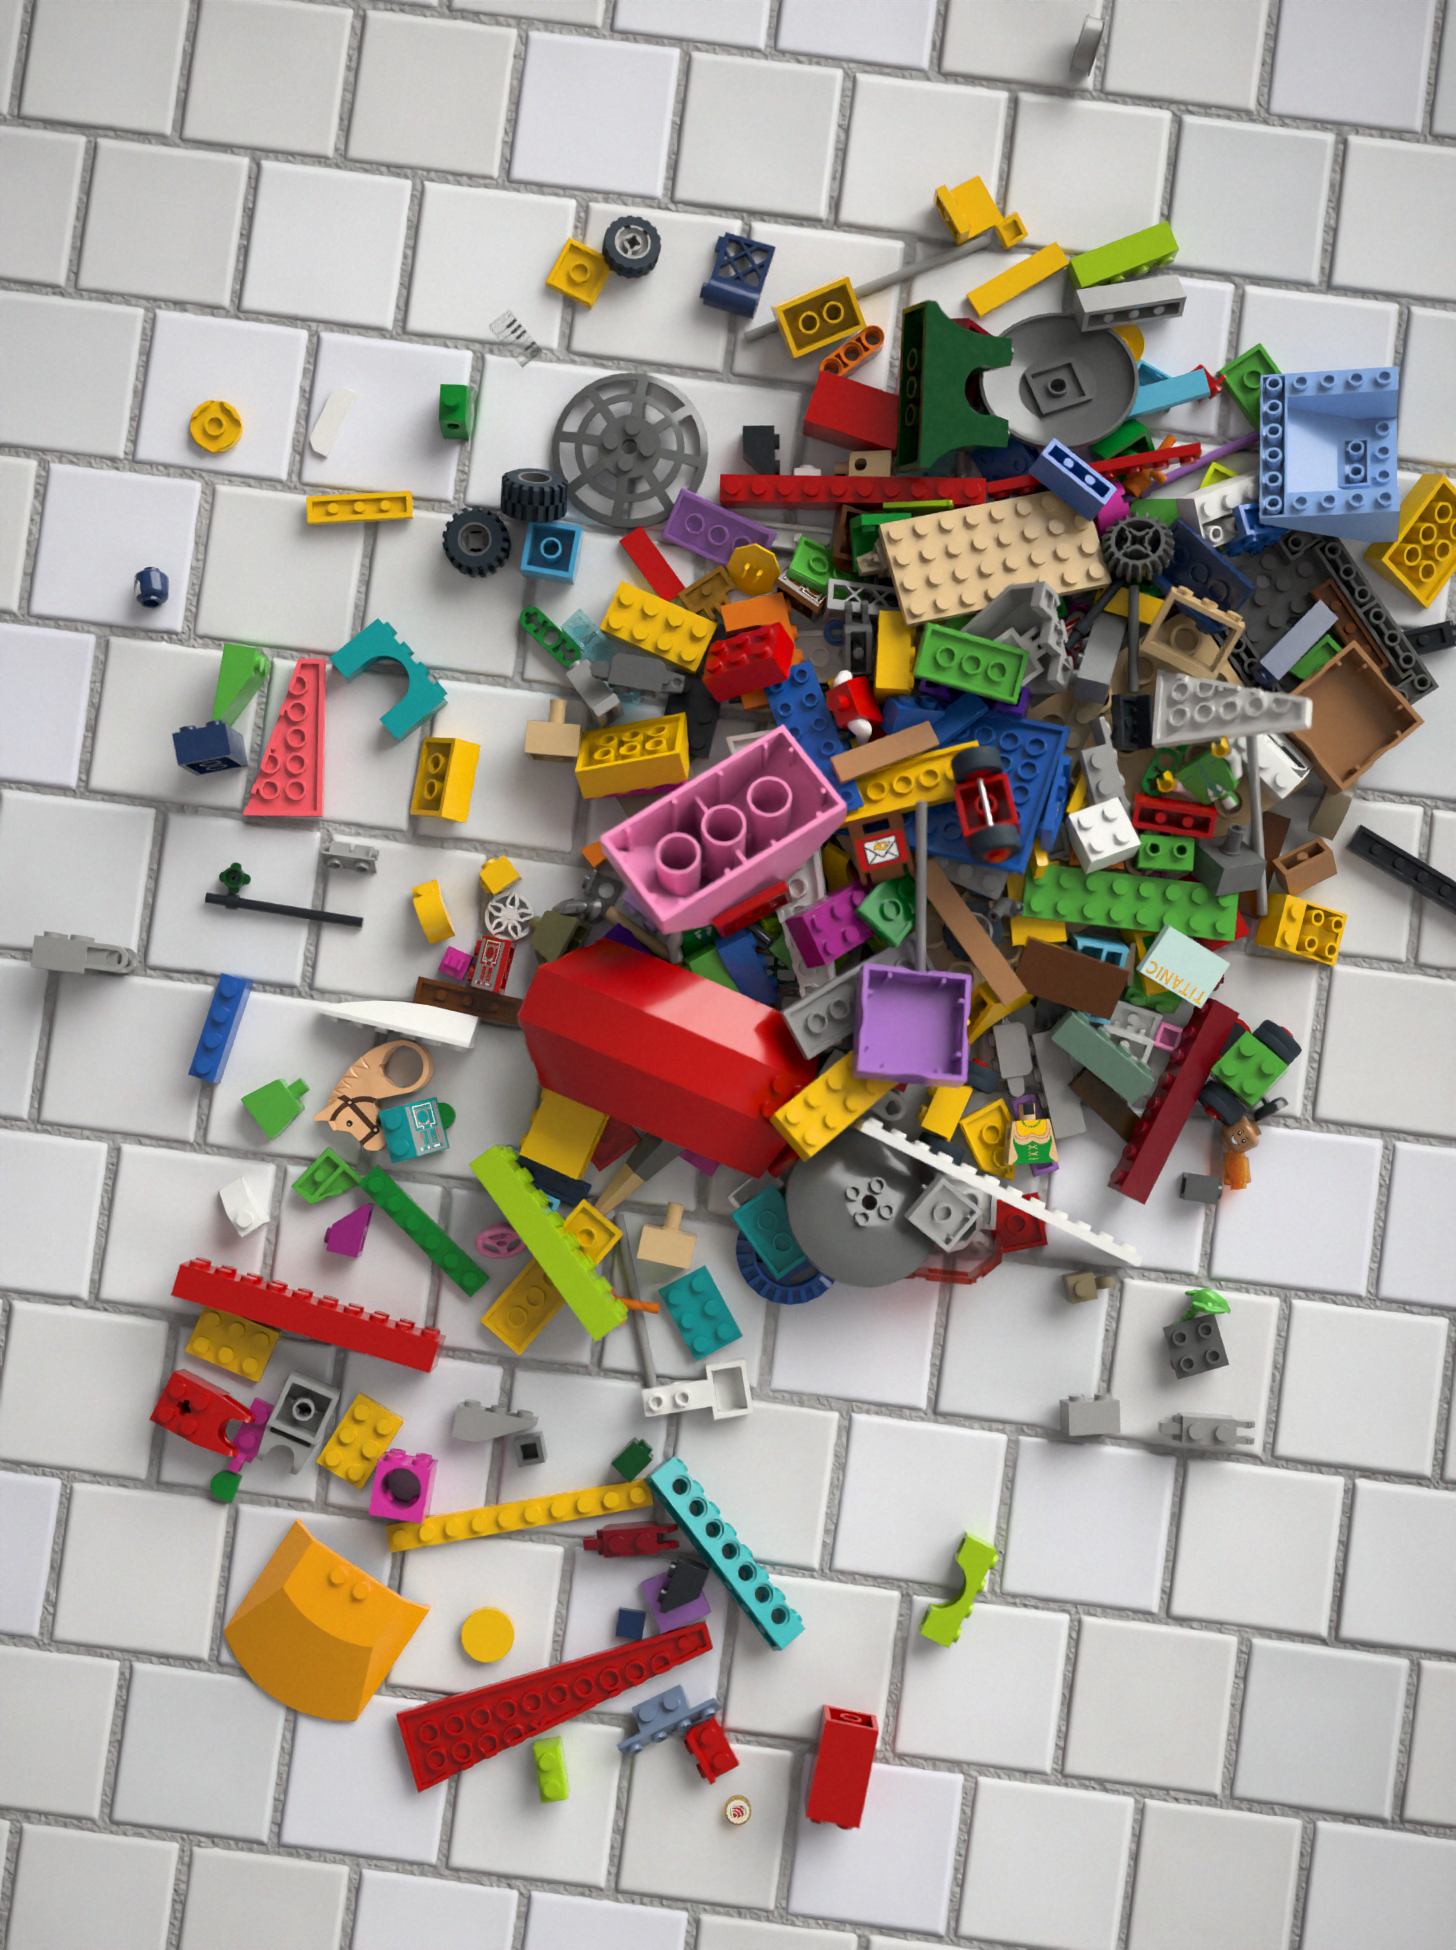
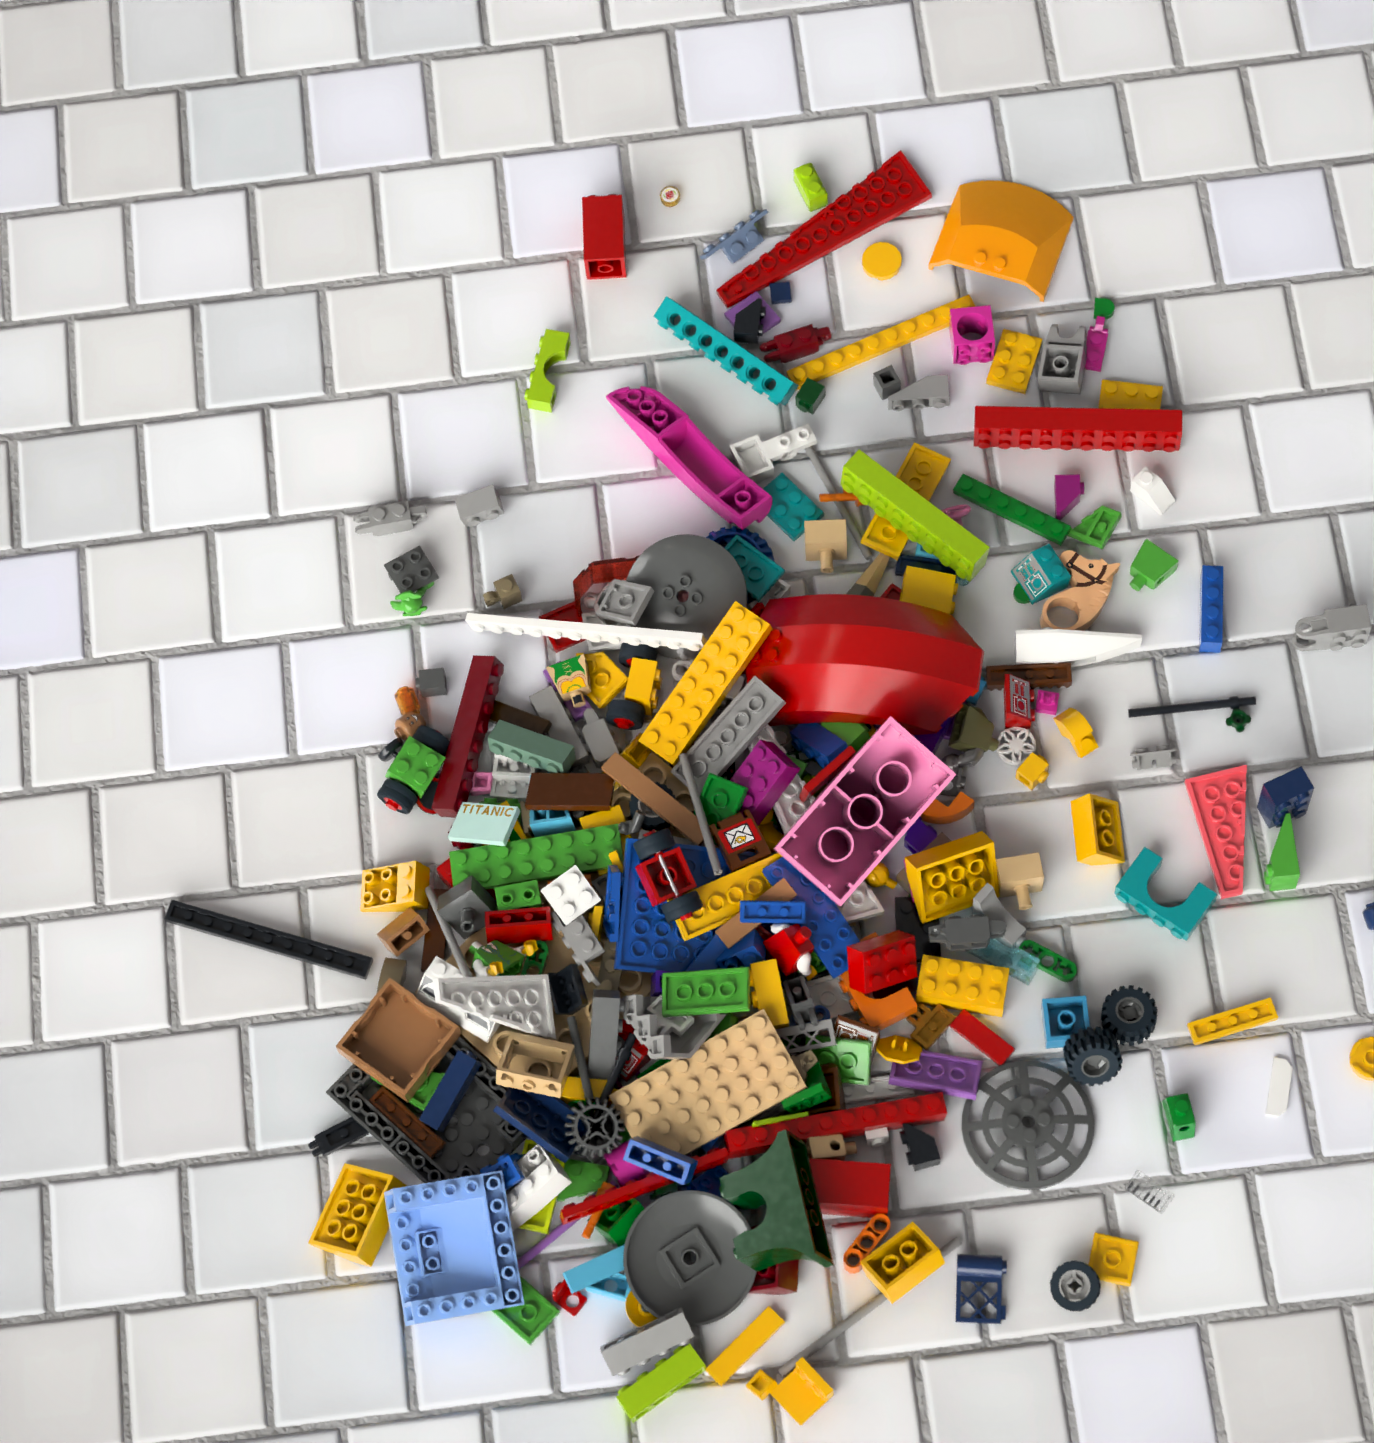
camera: 170 degrees right, 20 degrees down
(209, 1416) = (1135, 346): red brick -> none
(711, 1749) = (700, 227): red bracket -> none
(805, 1413) = (691, 455): none -> dark pink slope
(865, 744) = (772, 911): none -> blue tile
(911, 1026) = (683, 715): medium lavender tile -> none

